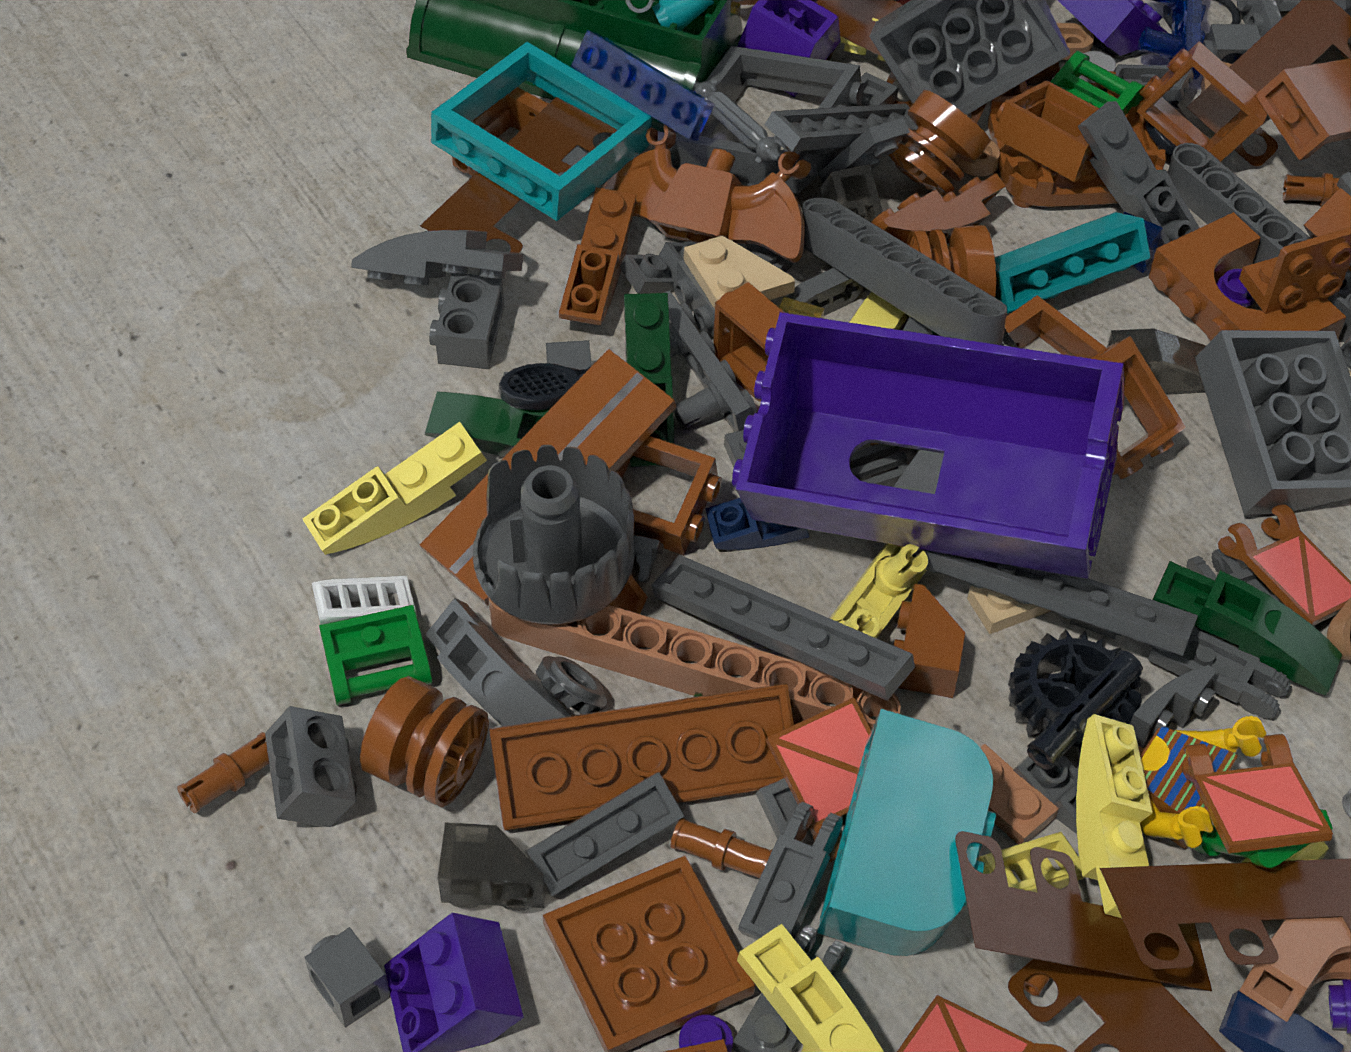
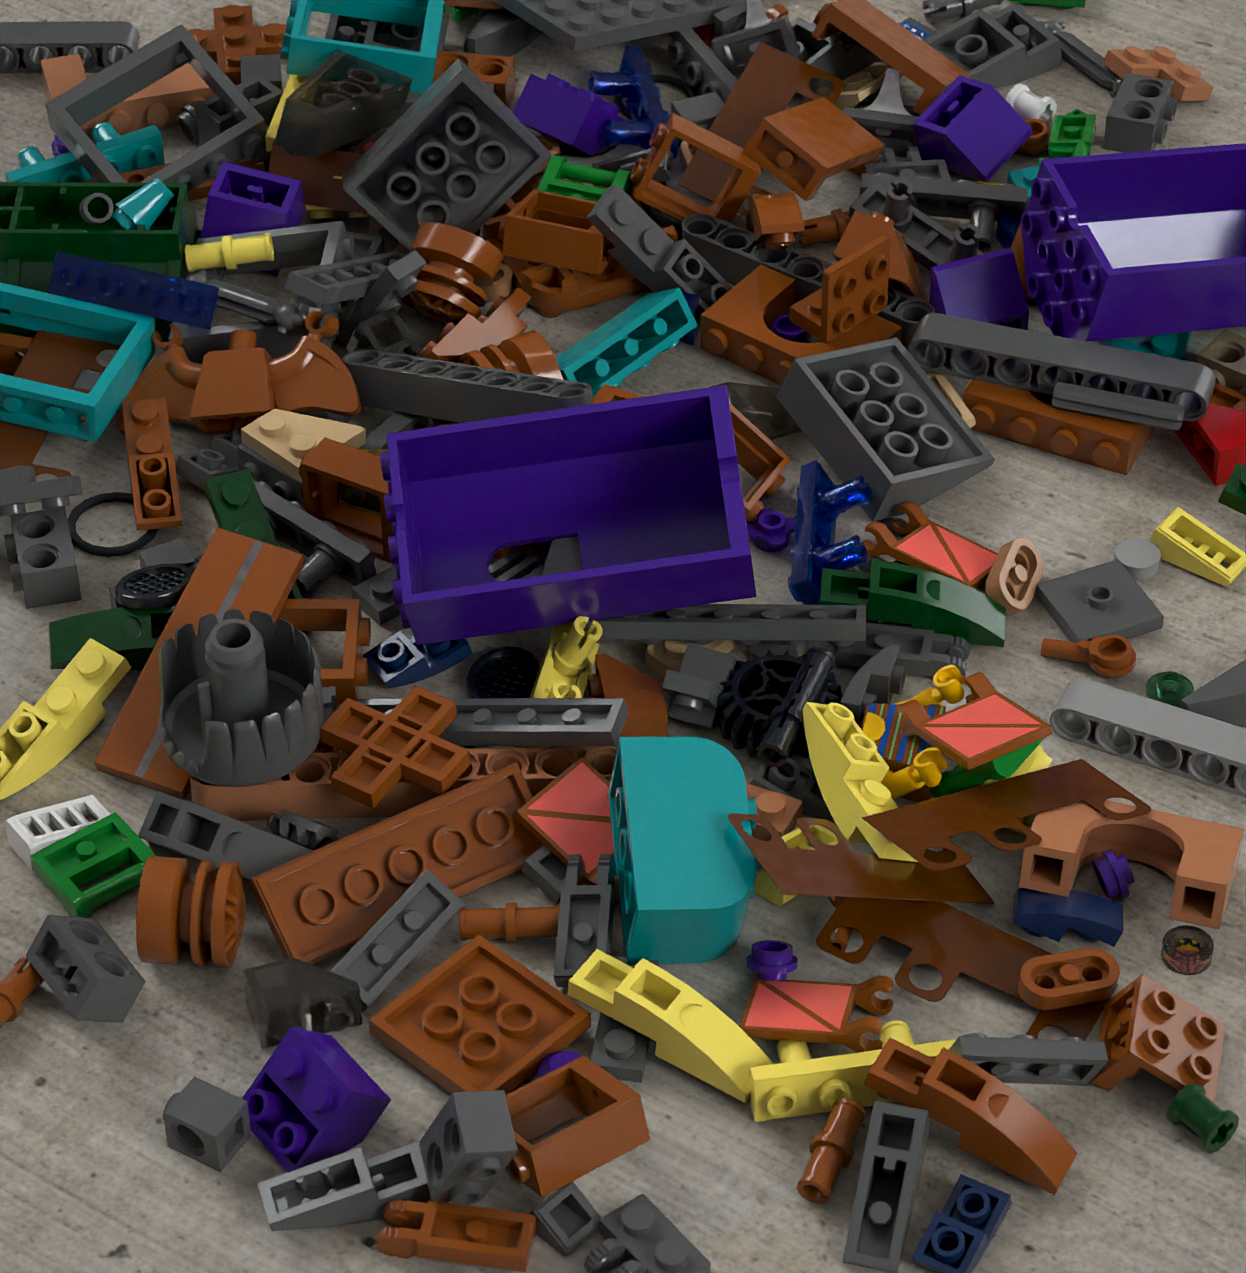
camera: 20 degrees left, 10 degrees down
(535, 329) = (100, 550): none -> black piece
(681, 628) = (394, 746): none -> dark orange plate
(748, 68) = (229, 252): none -> light yellow pin
(819, 549) = (505, 656): none -> black piece
(958, 983) = (772, 960): none -> dark purple plate
(1001, 647) = (698, 685): none -> dark grey brick
(1141, 493) = (771, 530): none -> dark purple plate
(1184, 503) = (815, 530): none -> clear blue plate
(1262, 170) = (775, 219): none -> dark orange slope

